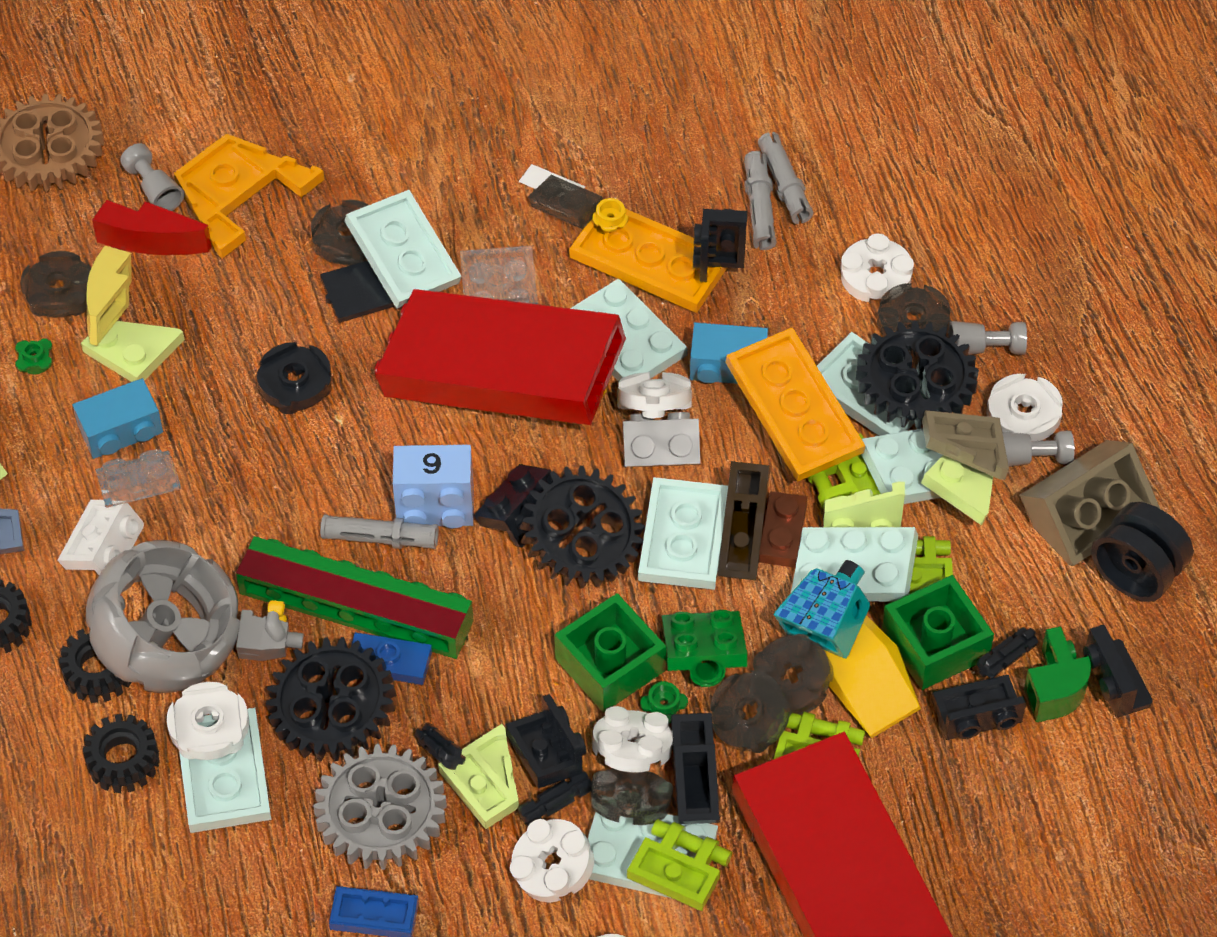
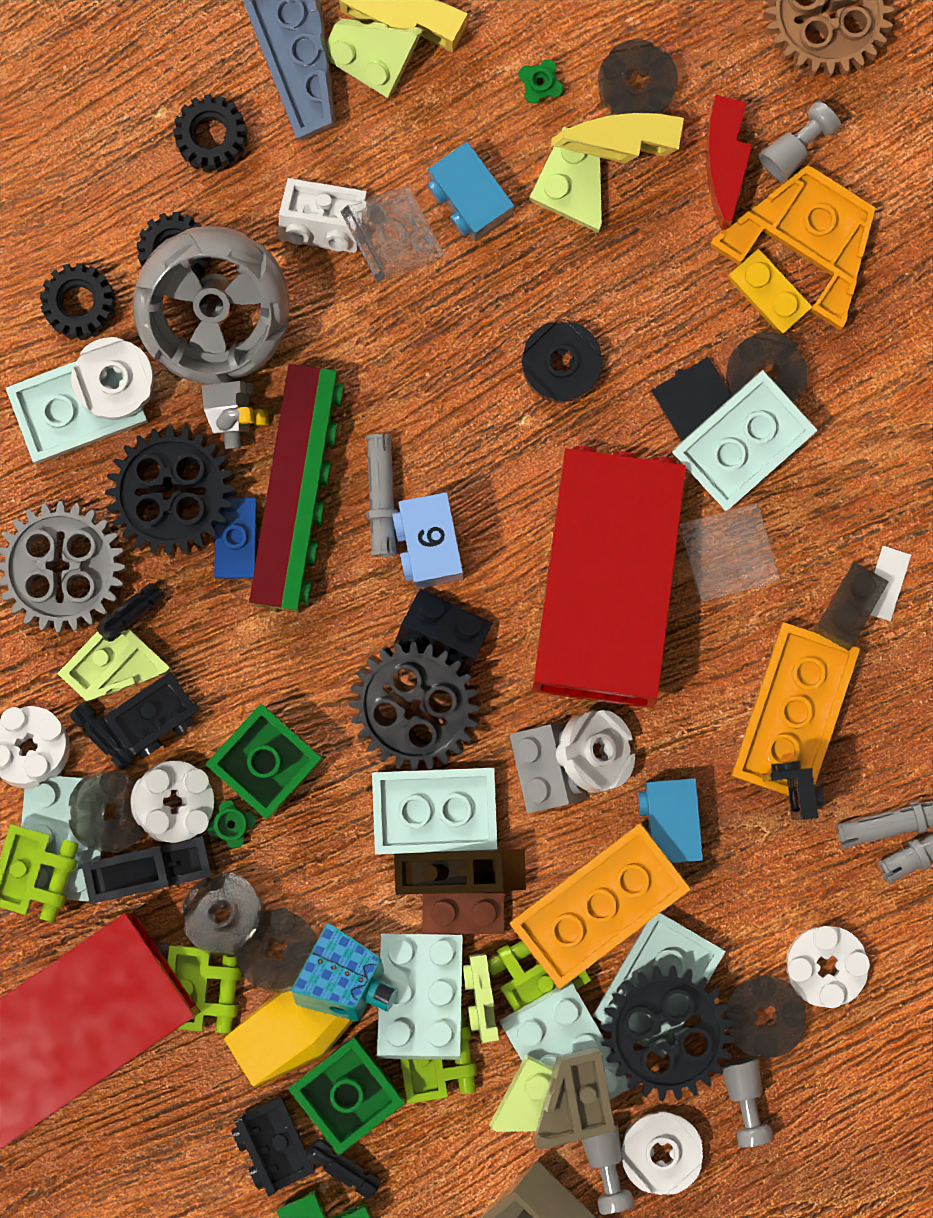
camera: 80 degrees right, 30 degrees up
(276, 222) = (769, 292): none -> yellow plate
(610, 208) = (840, 660): yellow plate -> none
(648, 342) = (694, 698): light aqua plate -> none
(704, 637) = (298, 854): green plate -> none

